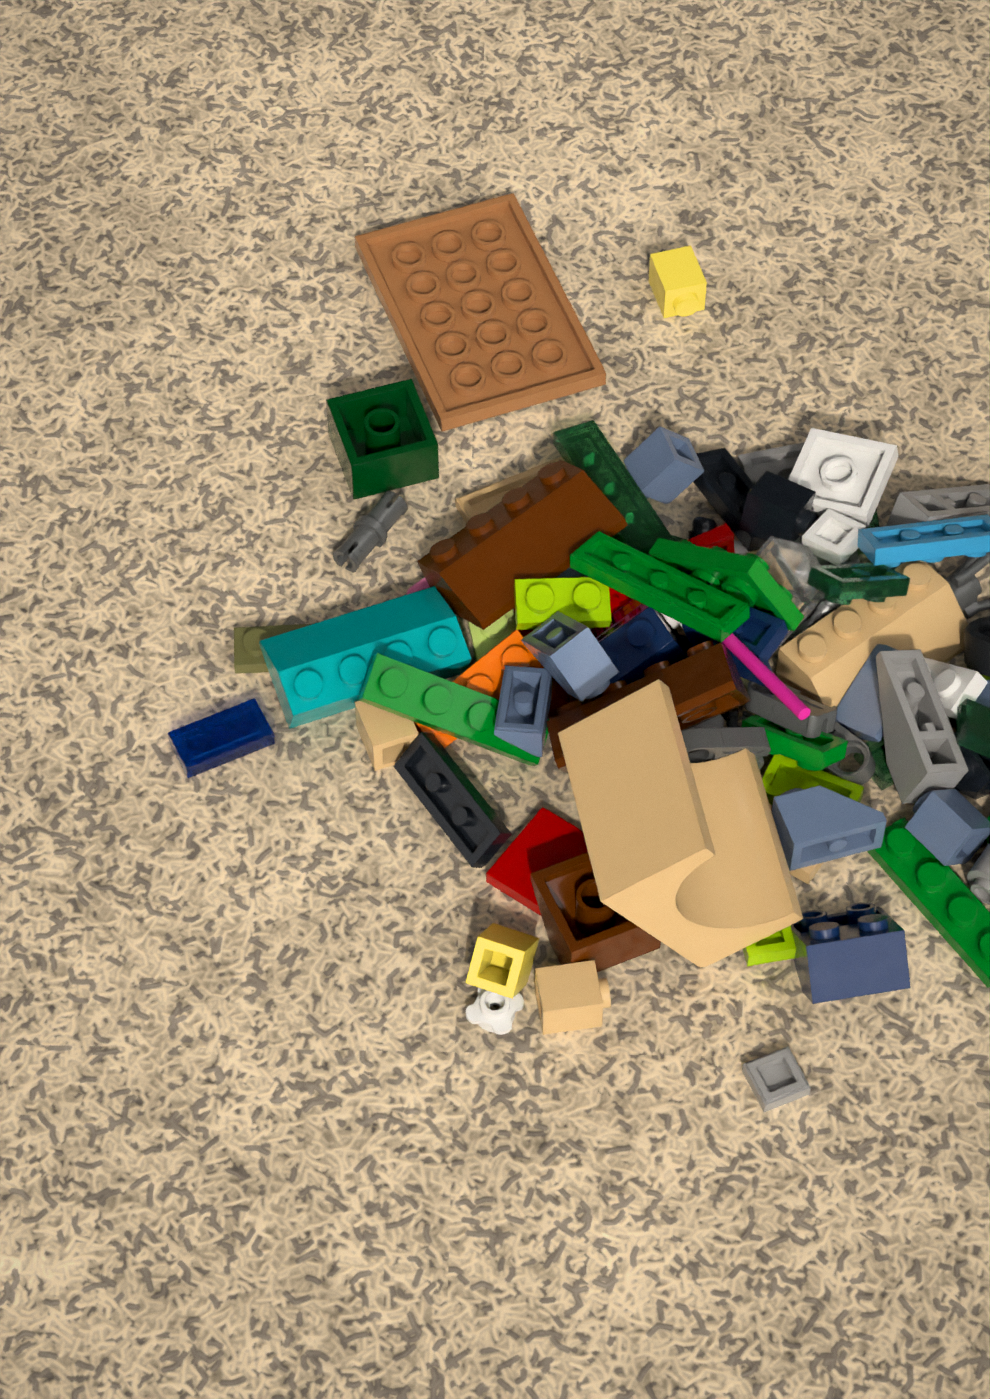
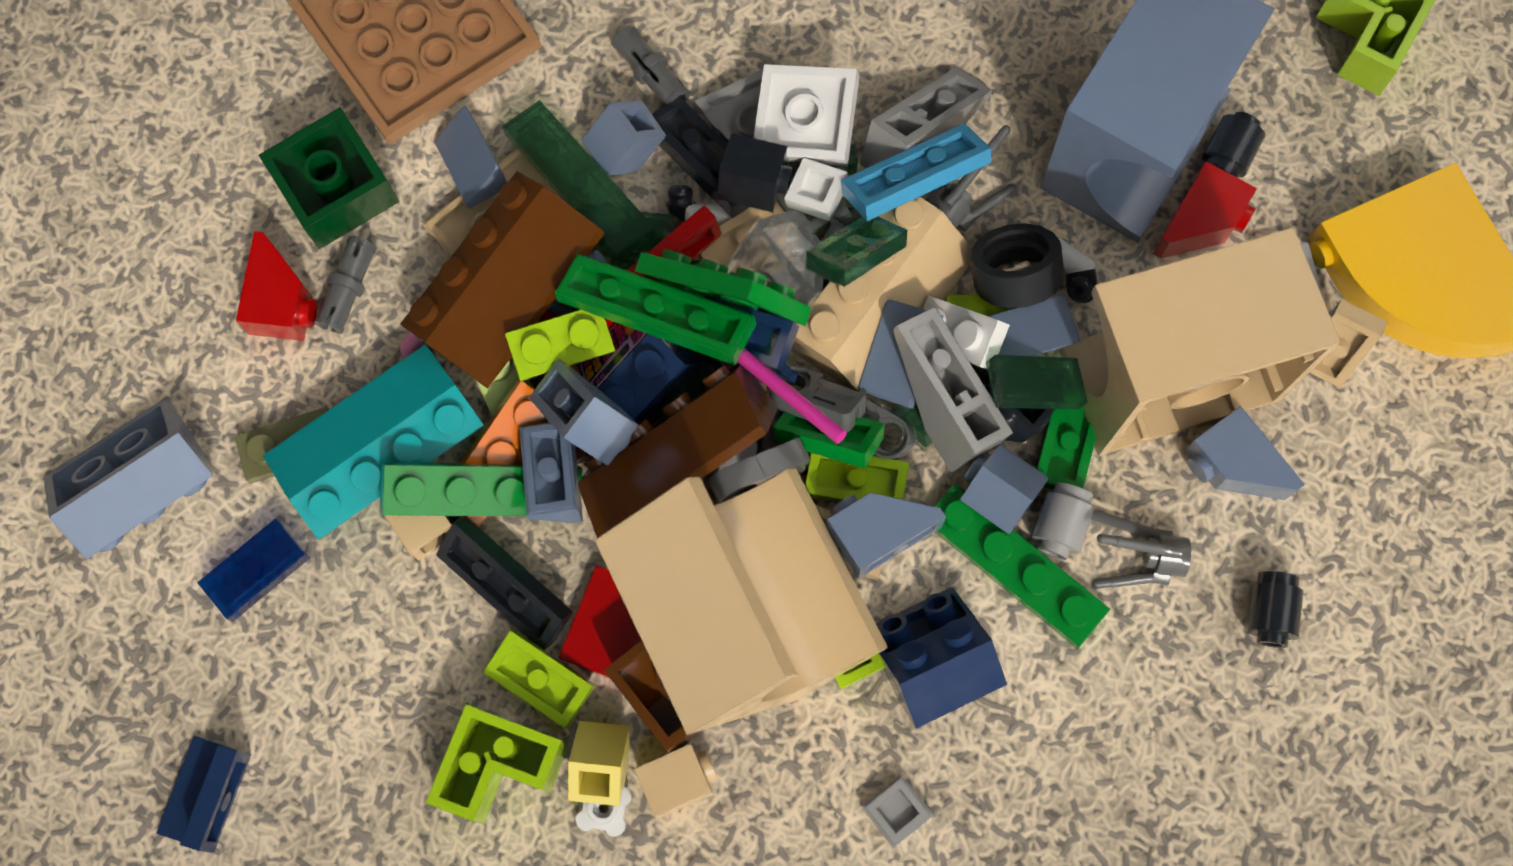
camera: 10 degrees left, 20 degrees up
(123, 909) = (203, 794): none -> dark blue panel
(128, 639) = (126, 479): none -> slope
(303, 523) = (273, 296): none -> red slope
(403, 927) = (484, 752): none -> lime brick
(463, 885) = (539, 679): none -> lime plate
(514, 452) = (469, 159): none -> sand blue slope
(693, 402) = (649, 65): none -> dark grey pin

